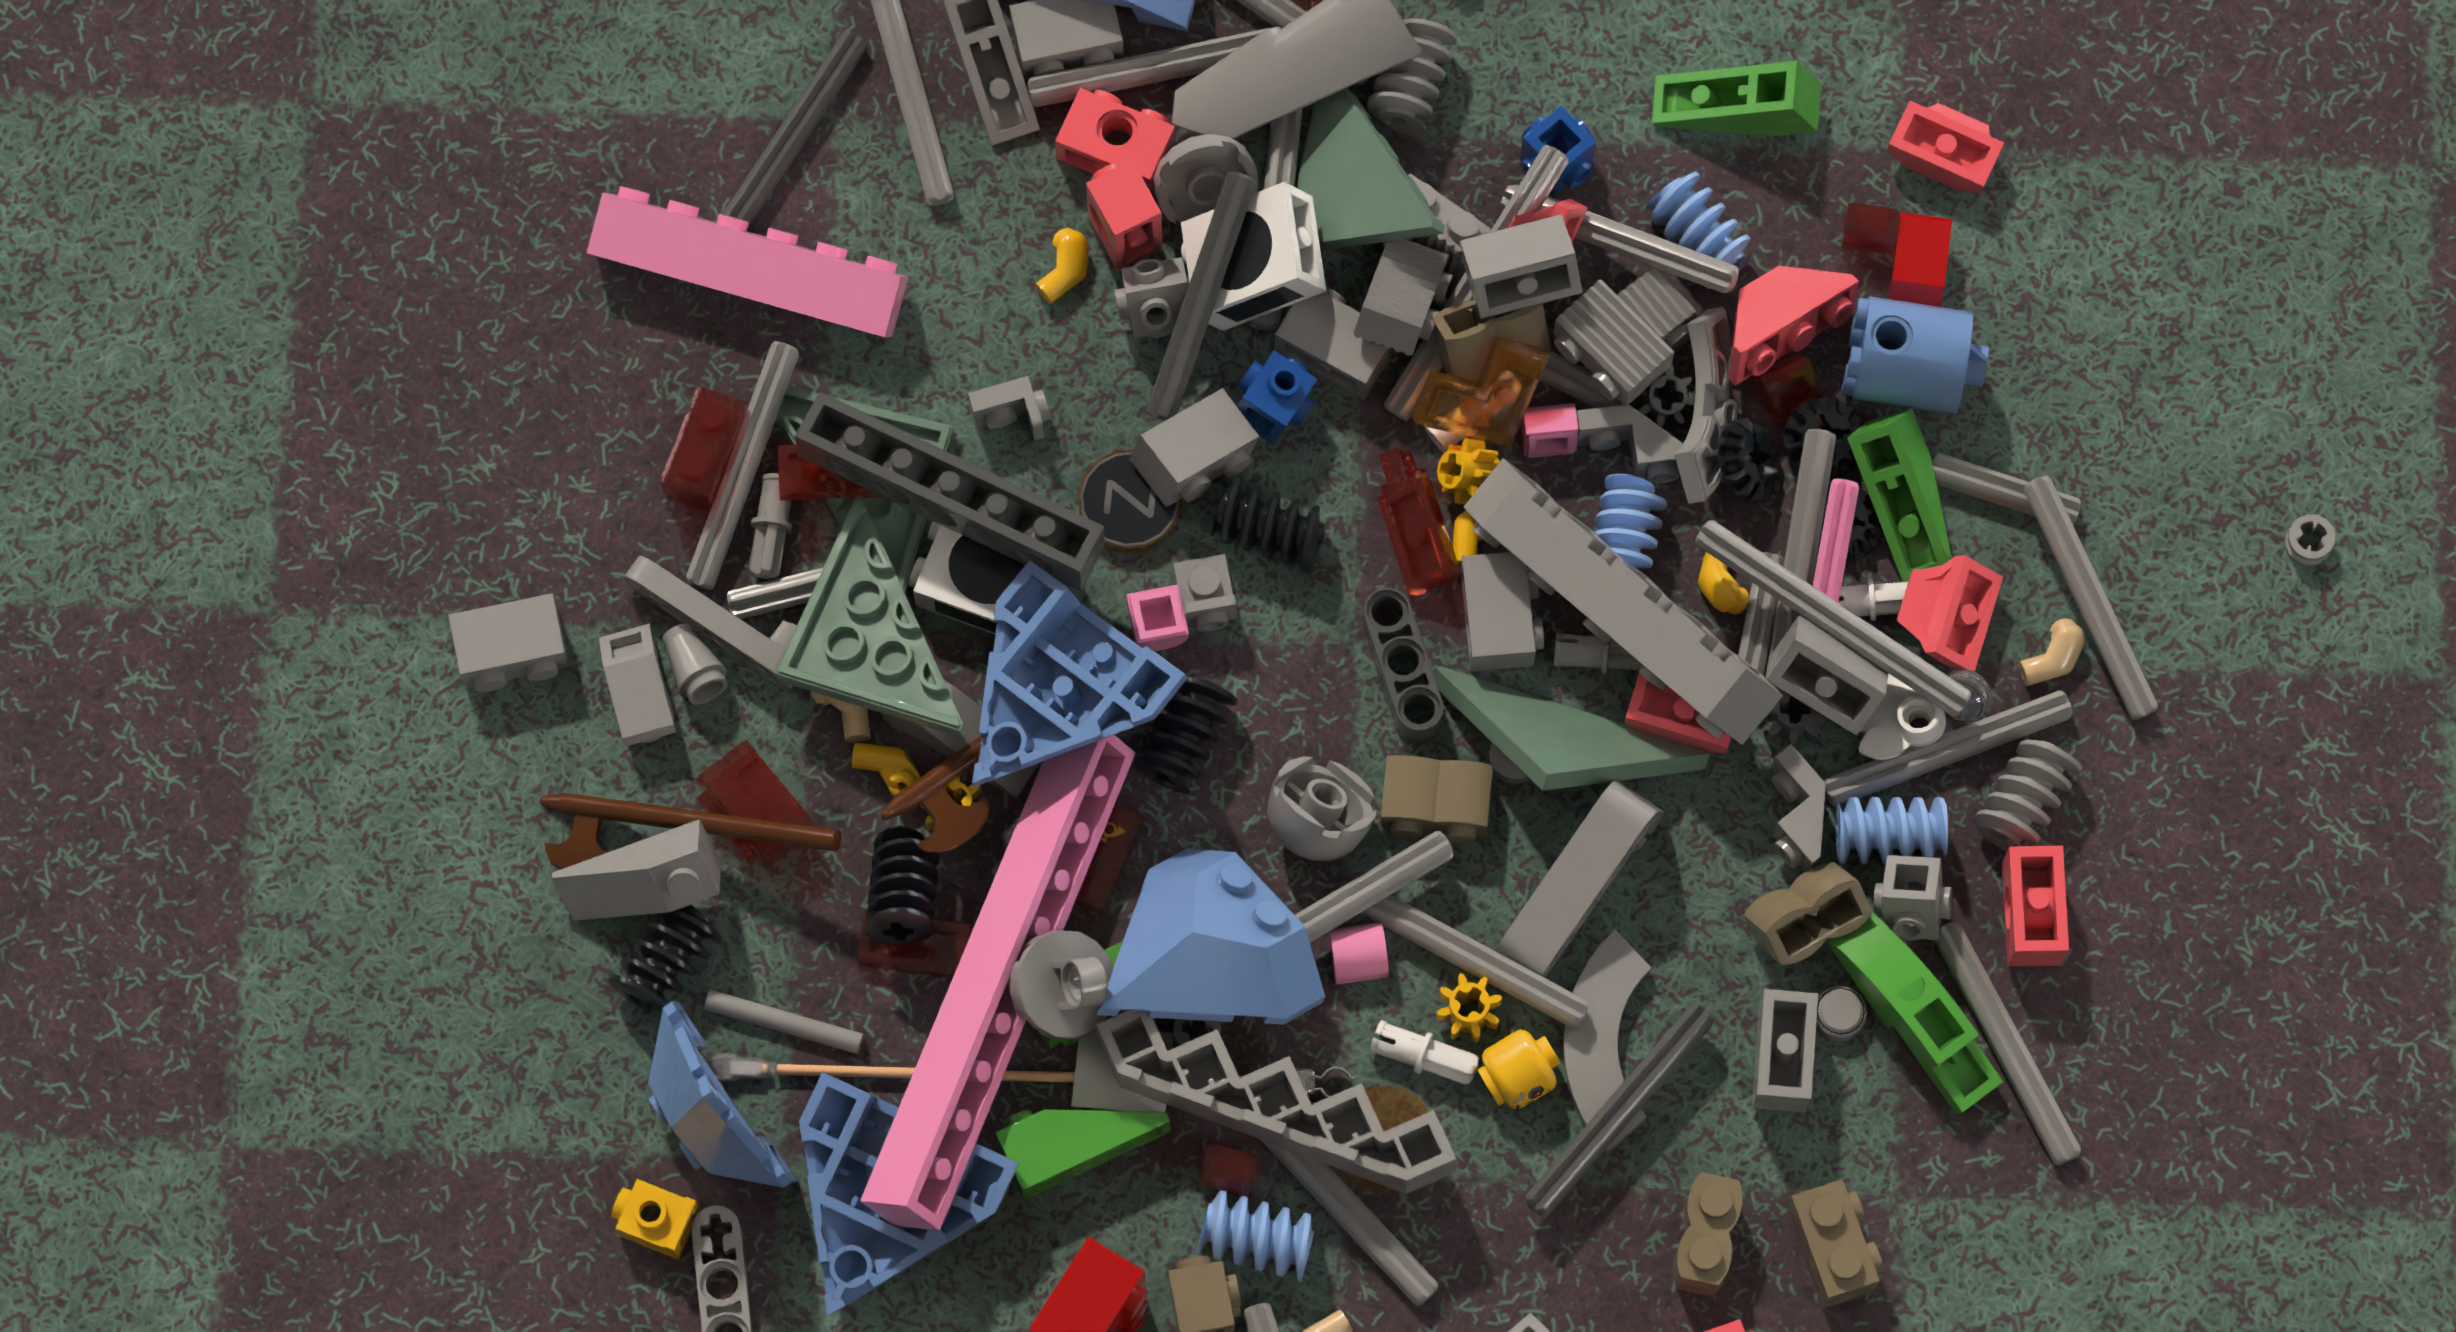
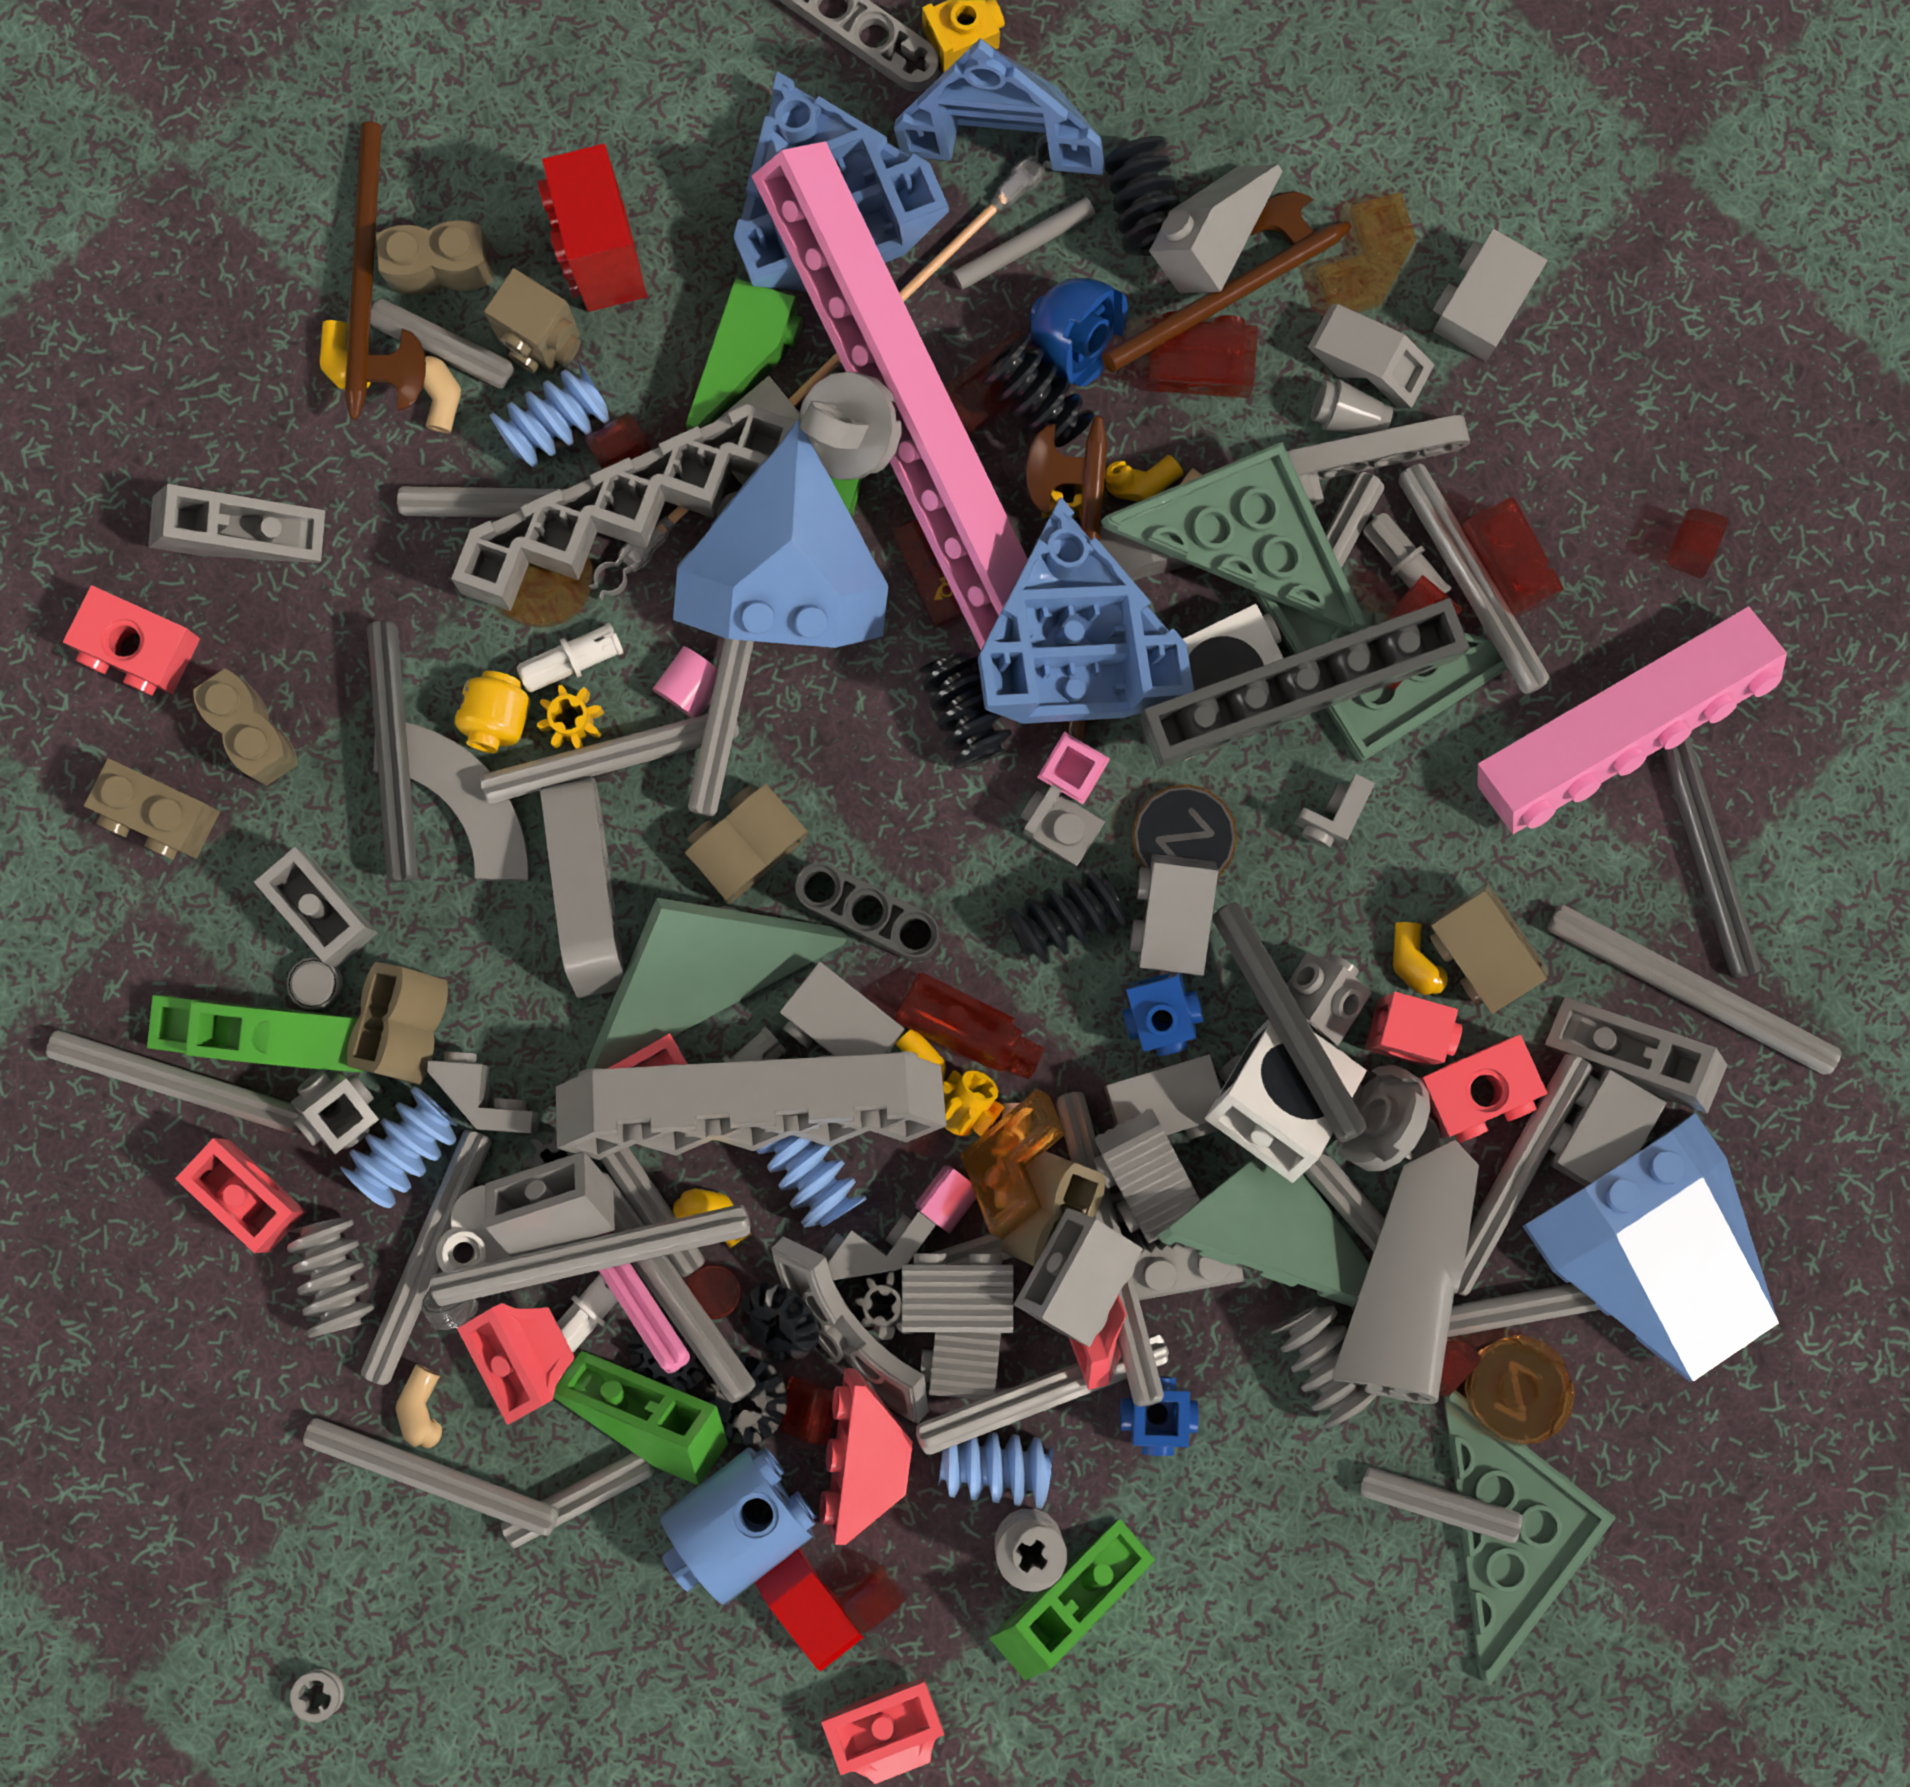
camera: 130 degrees right, 10 degrees up
(533, 756) = (1385, 241): none -> clear orange tile
(564, 334) = (1697, 542): none -> clear red brick
(820, 913) = (1076, 326): none -> blue cylinder
(1012, 217) = (1488, 949): none -> dark tan brick
(1319, 809) = (812, 744): light grey cylinder -> none
(1732, 150) = (1033, 1571): none -> light grey piece
(1769, 527) = (716, 1290): none -> clear red piece

